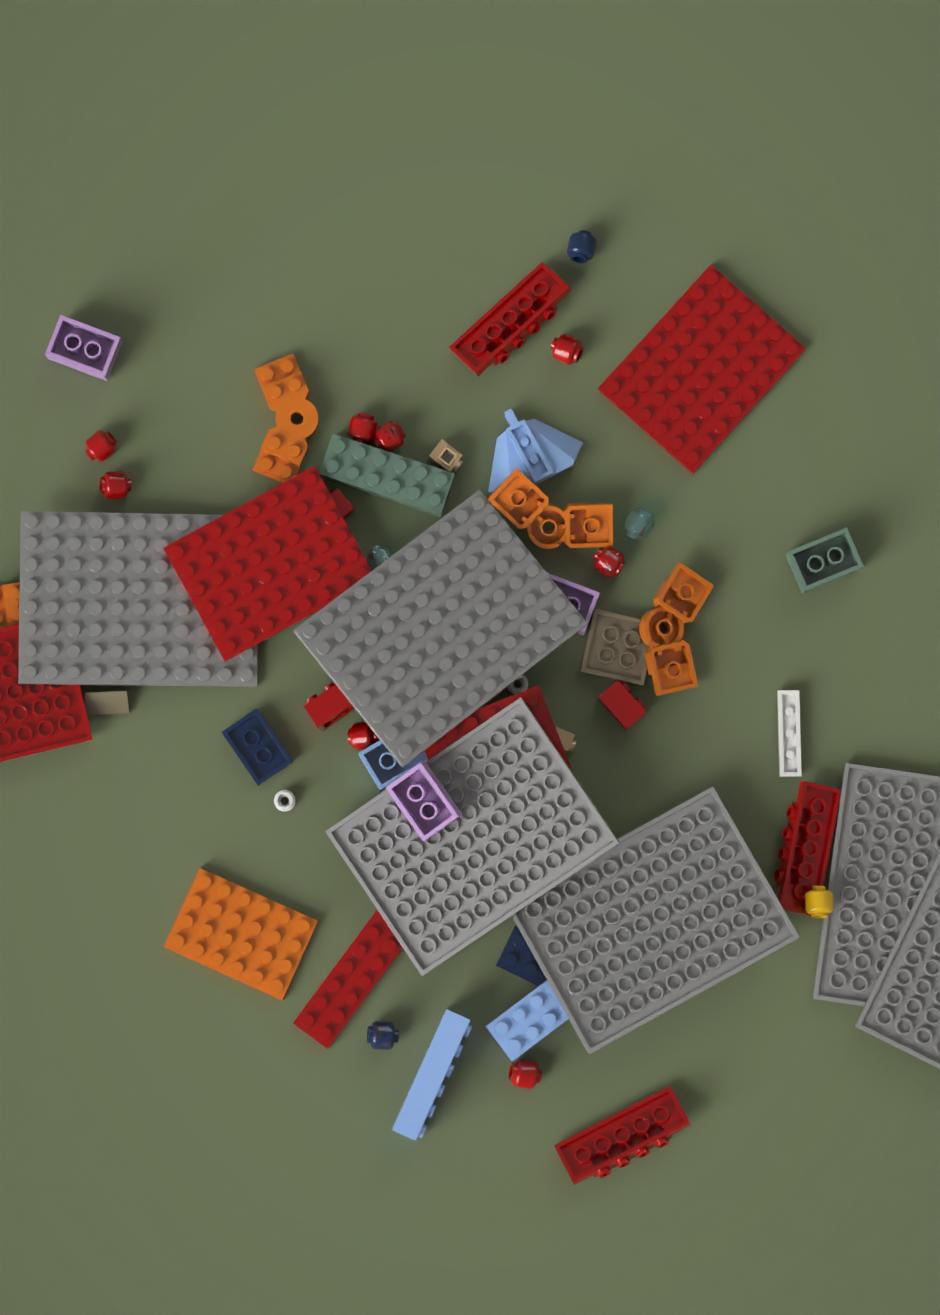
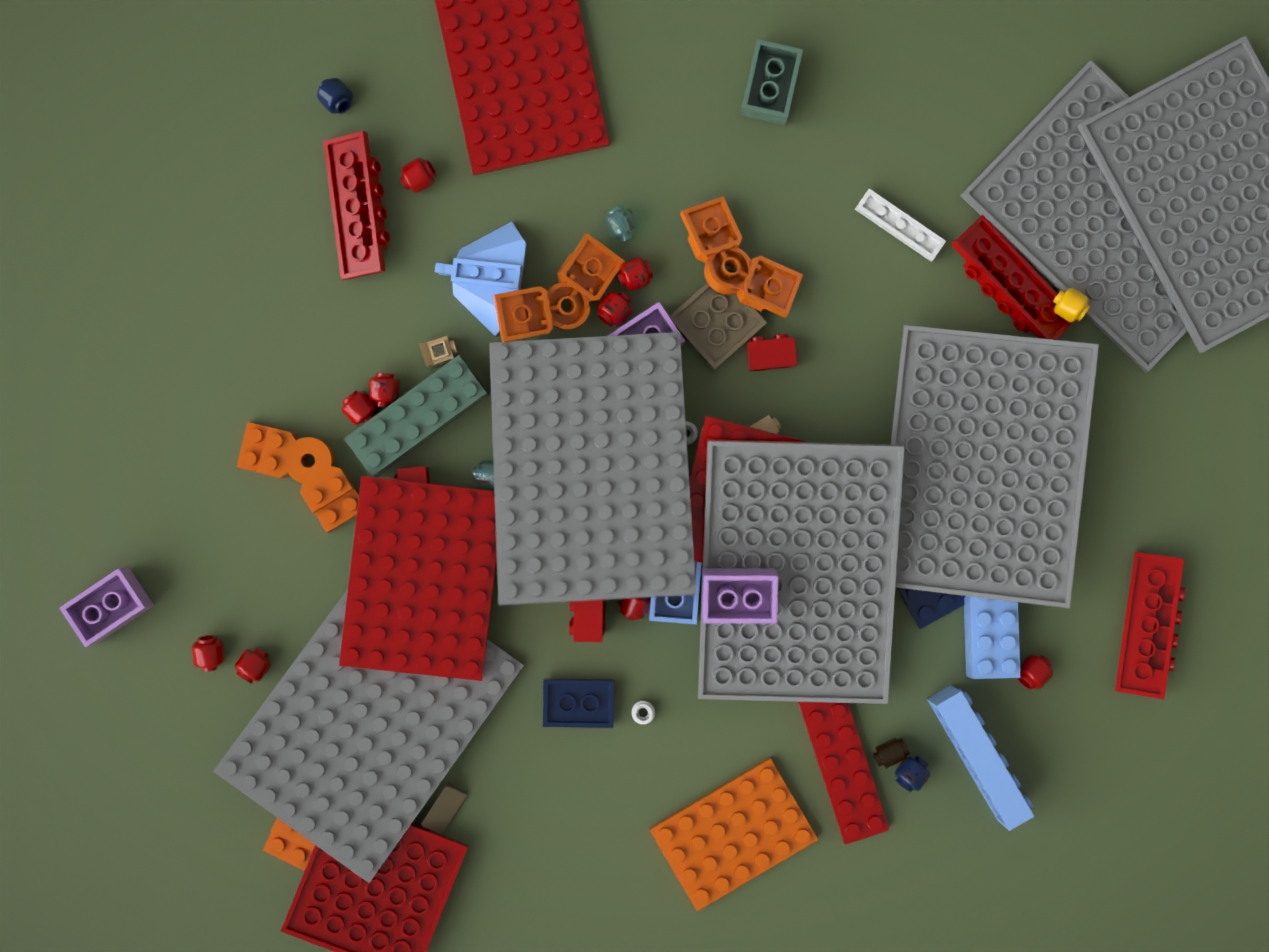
camera: 55 degrees left, 5 degrees up
(386, 1008) = (891, 752): none -> dark brown brick
(571, 564) = (614, 309): none -> red head

